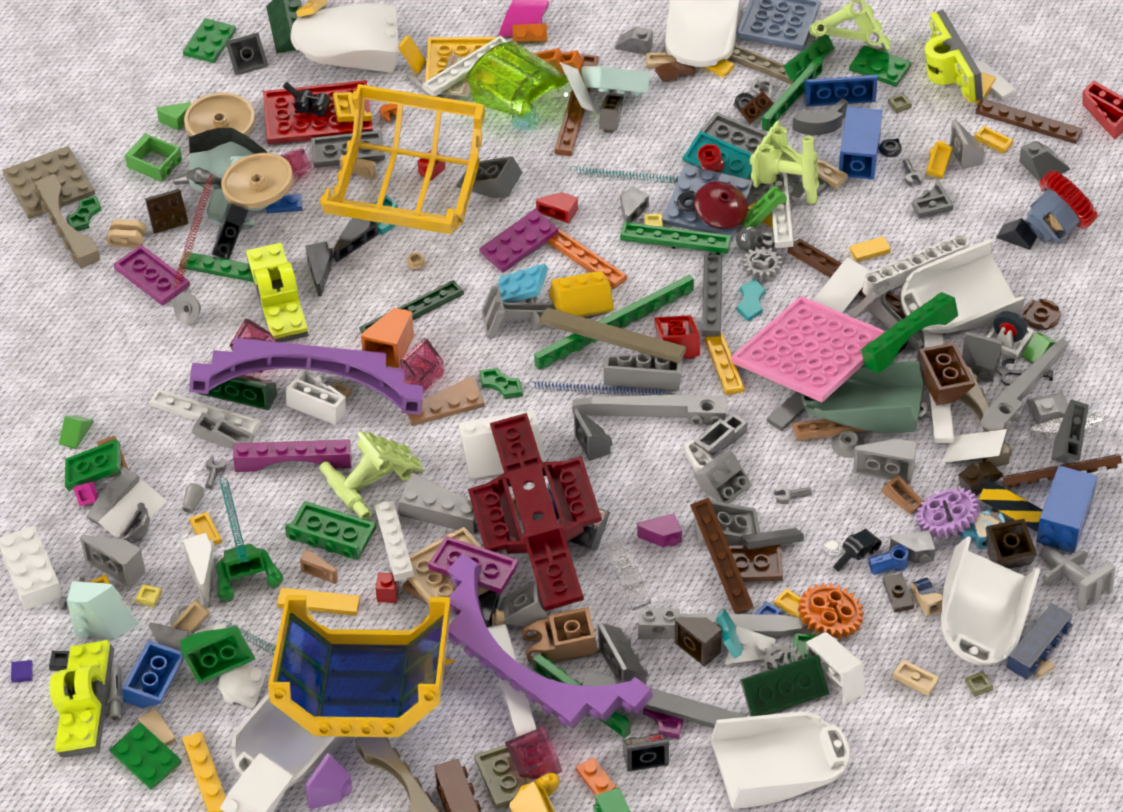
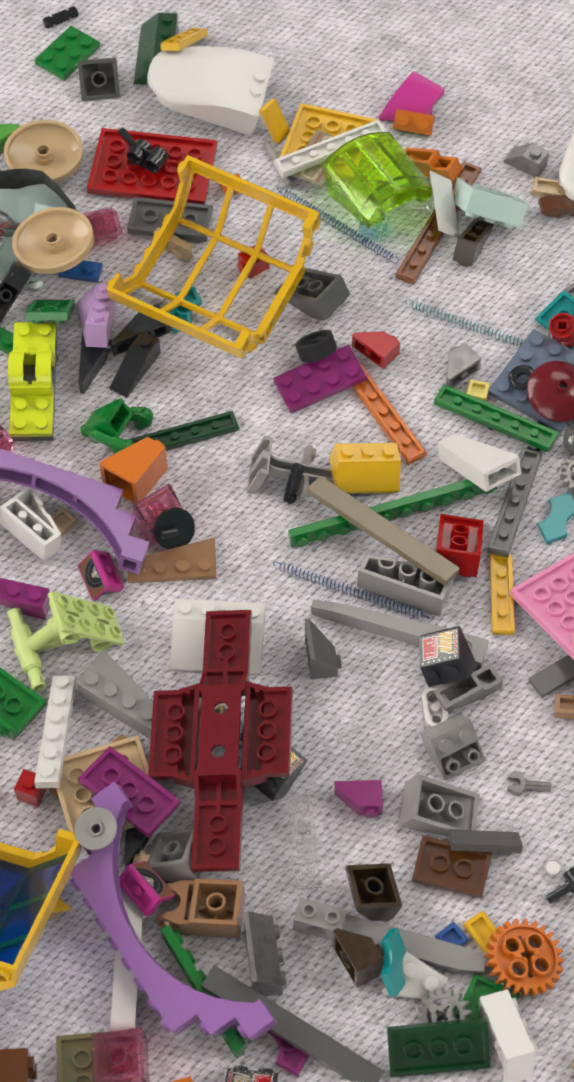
camera: 15 degrees right, 10 degrees up
(192, 14) = (60, 17): none -> black axle
(266, 237) = (50, 310): none -> green plate
(313, 229) = (96, 316): none -> lavender wedge
(346, 108) = (176, 158): yellow wing -> none
(356, 306) = (110, 420): none -> green torso
(359, 261) = (136, 363): none -> black slope
(385, 422) = (100, 574): none -> dark pink panel
(416, 261) = (199, 377): tan plate -> none
(437, 374) = (174, 528): none -> black shield
(458, 581) = (87, 823): none -> light grey piece
(496, 380) = (250, 561): green tile -> none
(508, 128) = (342, 226): none -> piece
(508, 215) = (316, 346): none -> black tyre
(509, 631) = (144, 887): none -> dark pink panel
(522, 284) = (301, 438): medium azure plate -> none
(525, 319) = (293, 483): none -> black axle
(673, 269) = (479, 462): none -> white slope
(696, 412) = (445, 656): none -> slope
(697, 590) = (374, 891): none -> dark brown slope
(721, 556) = (416, 855): reddish brown plate -> none

